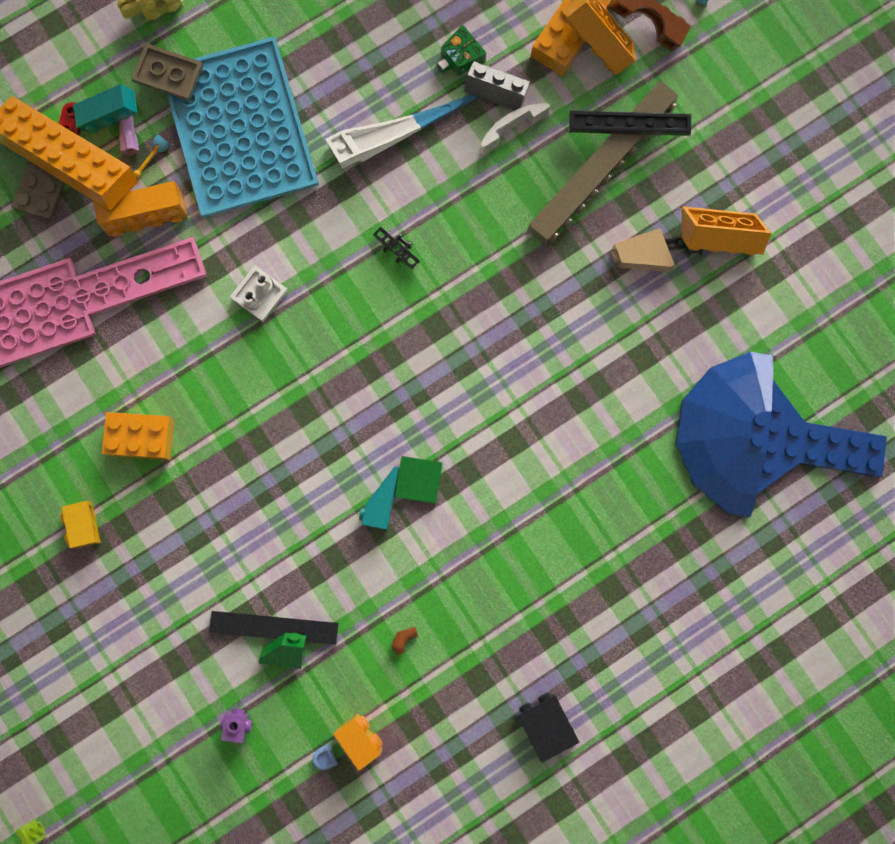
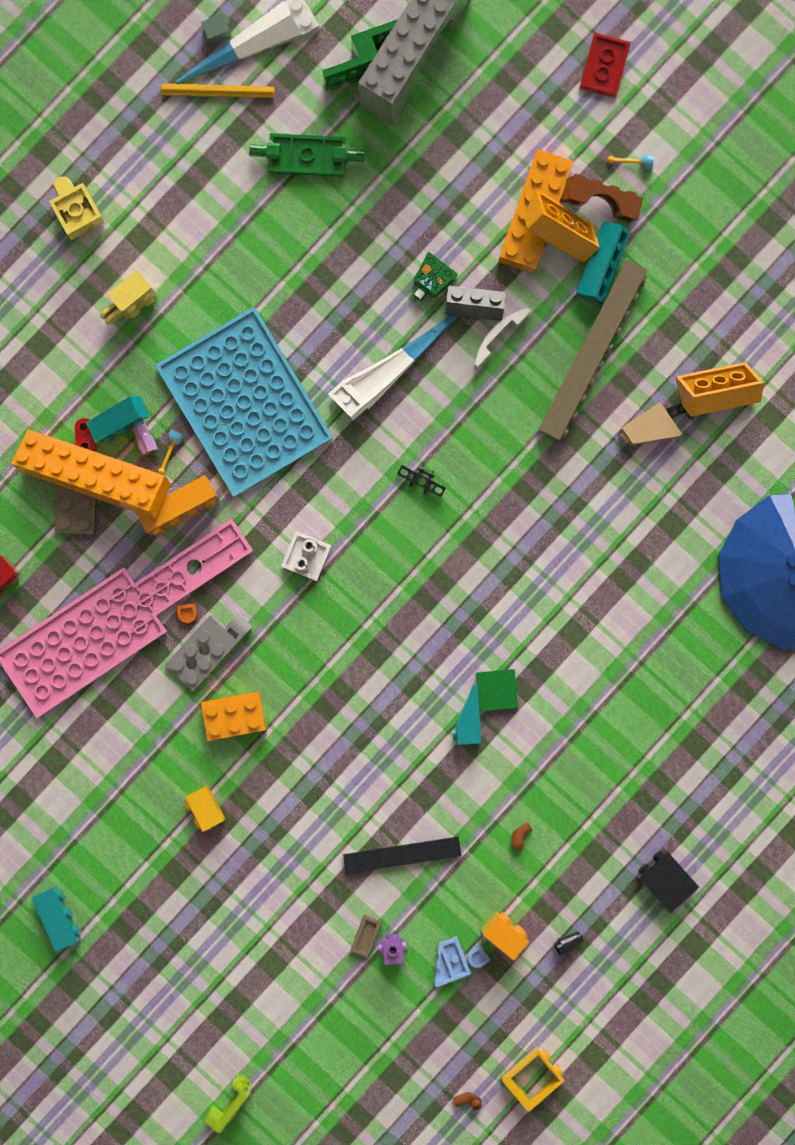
camera: 10 degrees left, 5 degrees up
(122, 321) = (187, 613): none -> orange tile
(146, 358) = (218, 638): none -> light grey hinge
(167, 72) = (165, 368): dark tan plate -> none
(212, 704) = (366, 936): none -> dark tan tile
(285, 651) = (418, 873): green slope -> none
(294, 756) = (450, 962): none -> light blue wing
(424, 768) = (566, 944): none -> black cone
(629, 123) = (608, 308): black tile -> none
(636, 78) = (603, 263): none -> teal brick

